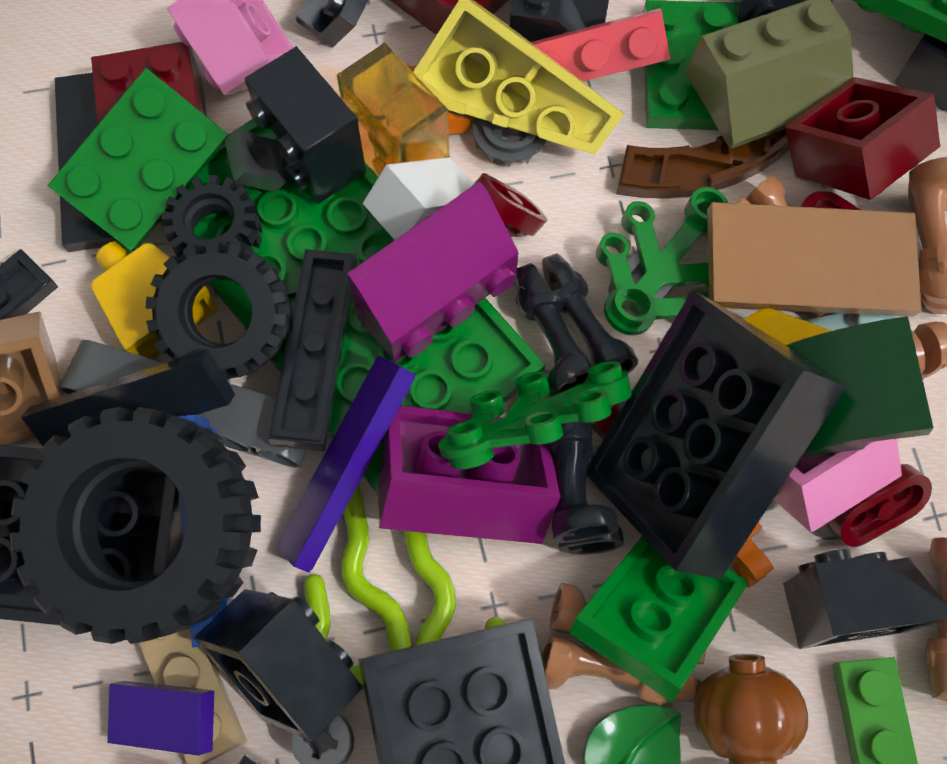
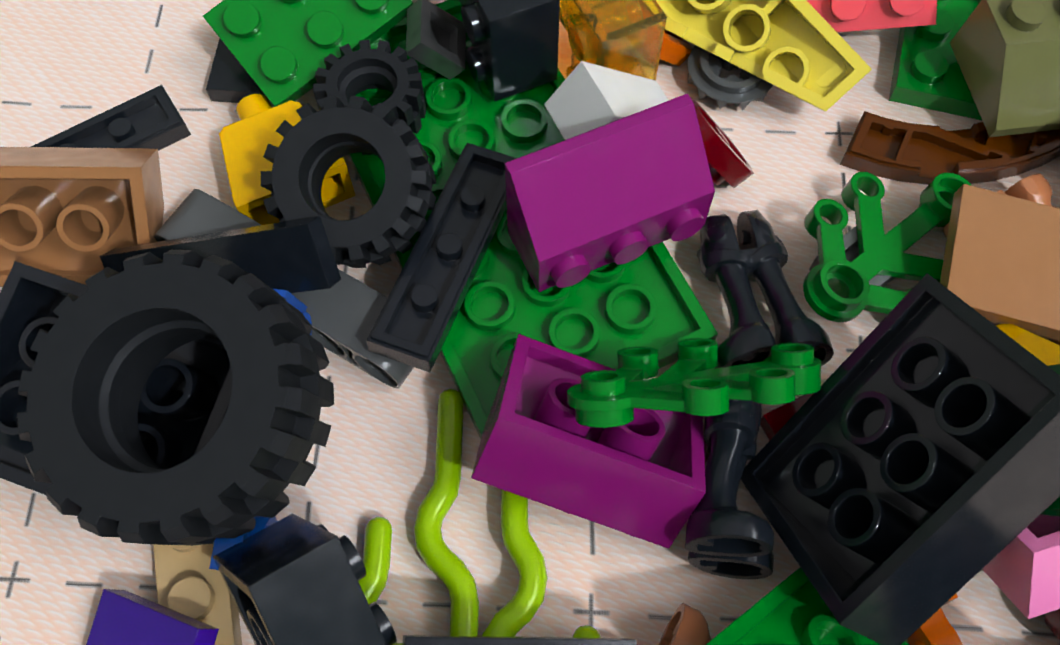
camera: 15 degrees right, 5 degrees down
(344, 463) = (449, 391): dark purple tile -> none

